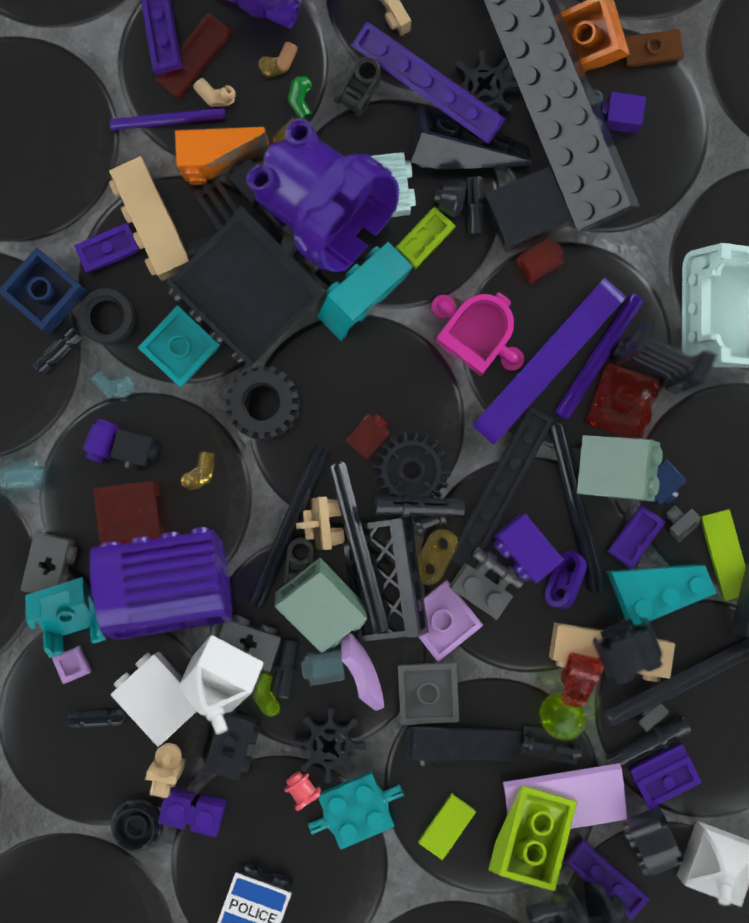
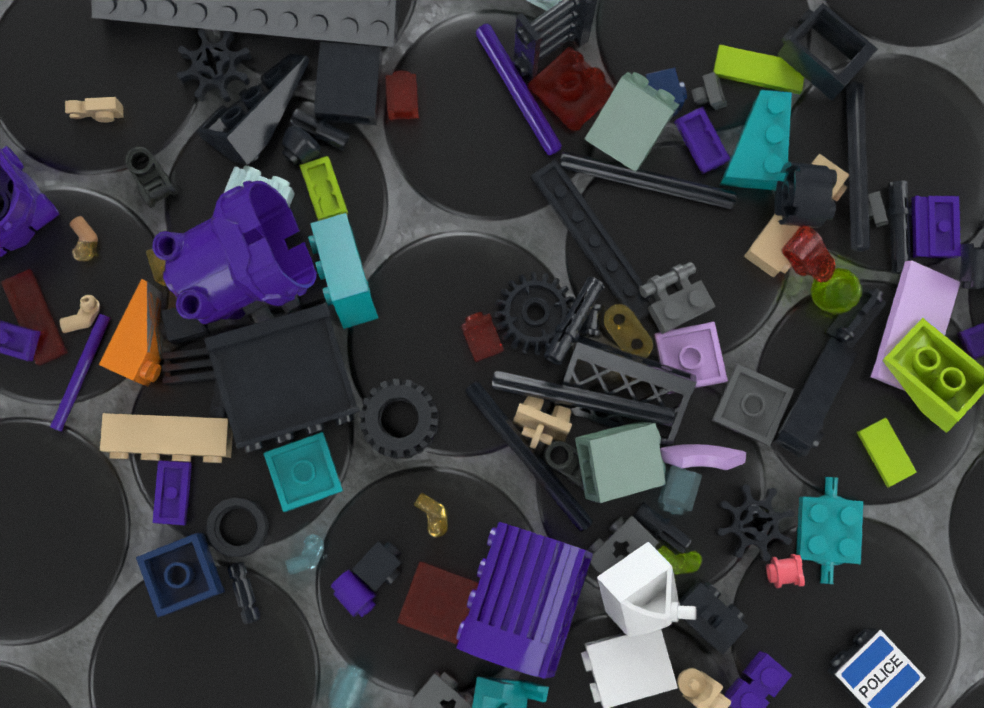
camera: 65 degrees left, 5 degrees down
(296, 96) = (126, 240): green arm -> none
(428, 82) = (181, 111): dark purple tile -> none
(478, 331) = (438, 185): dark pink piece -> none
(527, 548) = (663, 242): dark purple brick -> none
(549, 361) = (499, 136): dark purple beam -> none
(565, 580) = (708, 226): dark purple plate -> none

